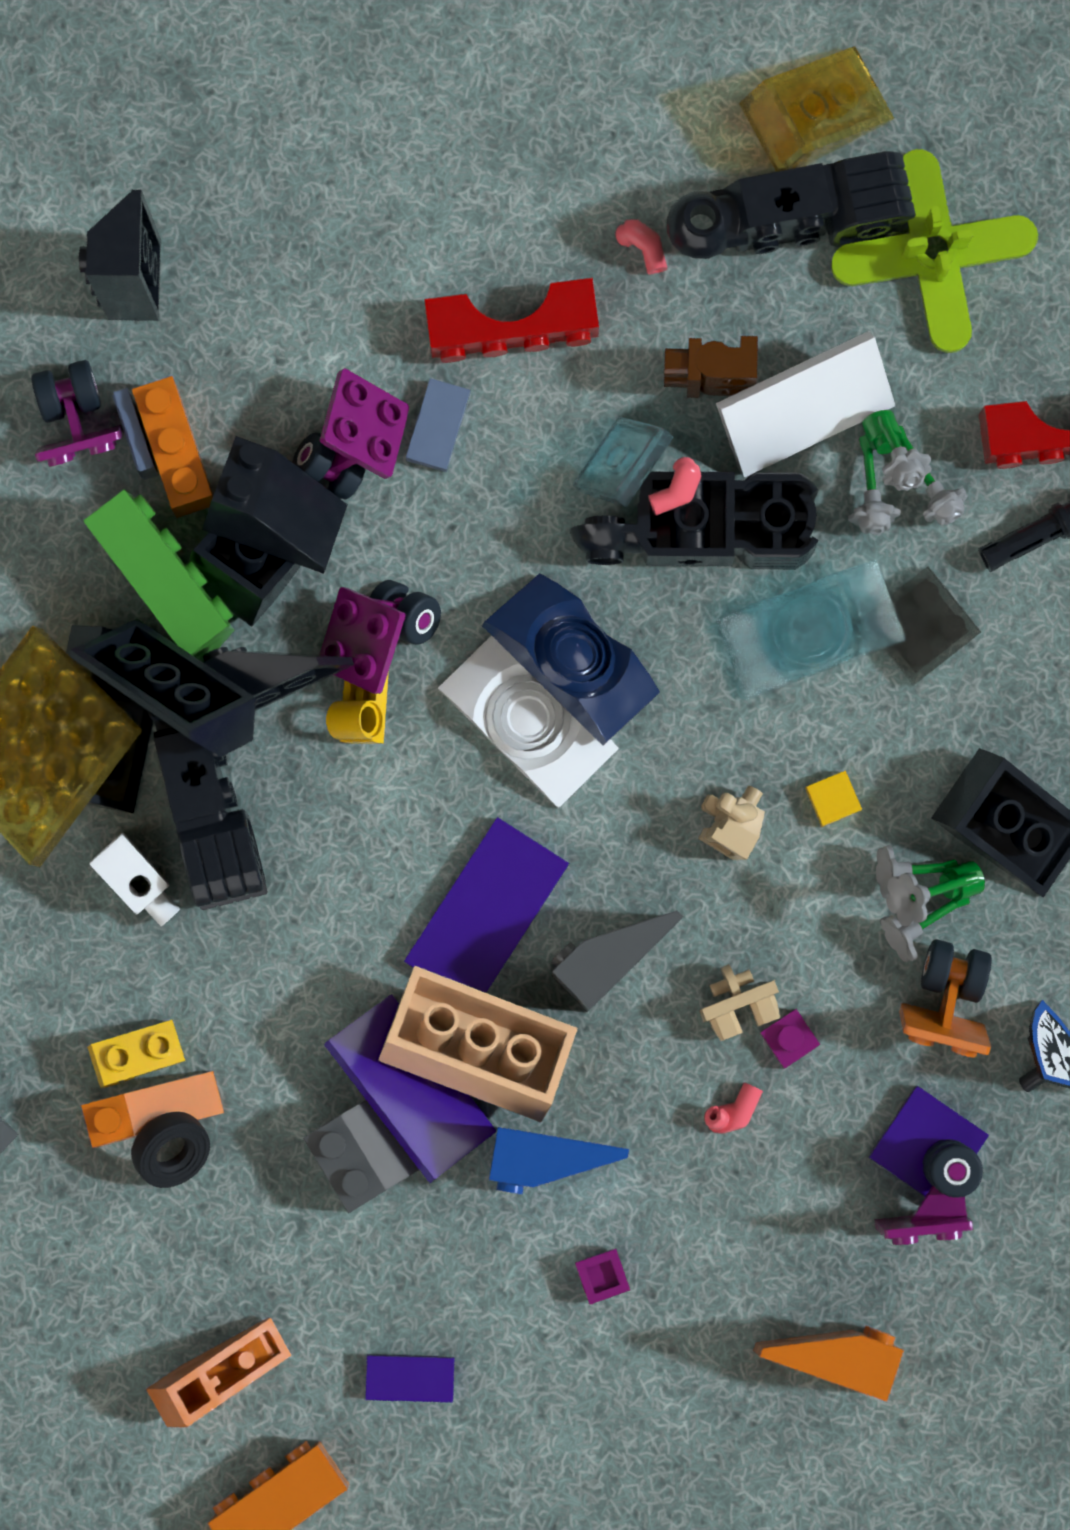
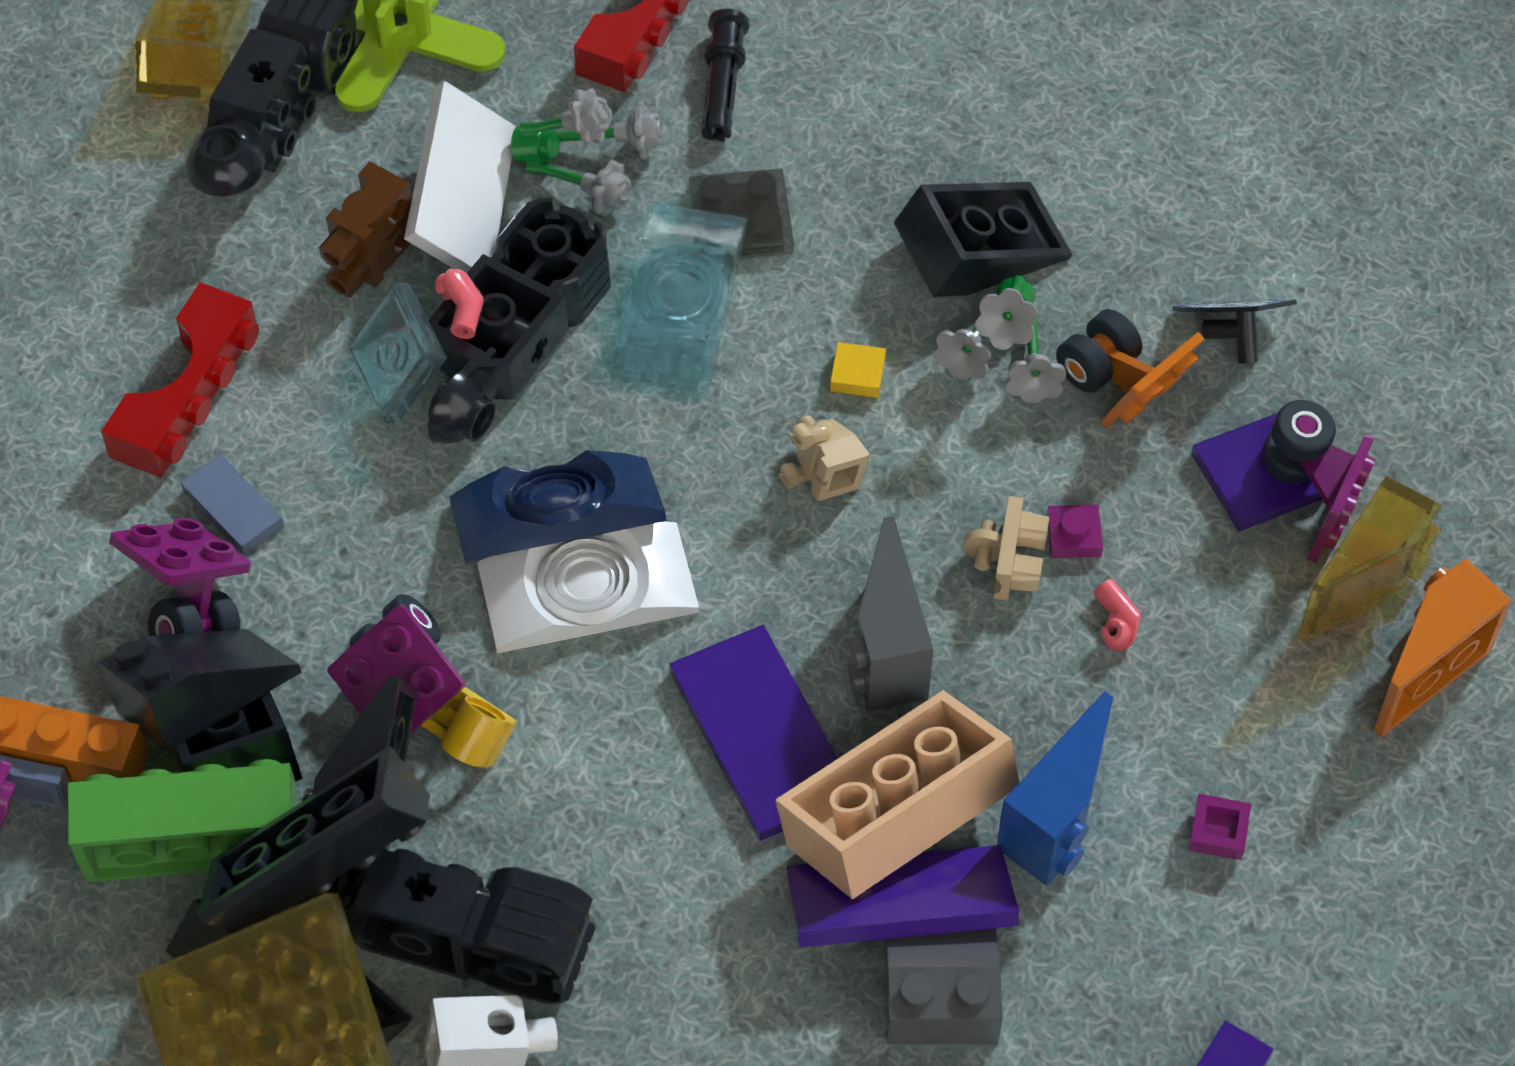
camera: 55 degrees left, 25 degrees down
(645, 239) = (203, 235): coral arm -> none
(898, 1278) = (1375, 558): none -> clear yellow slope

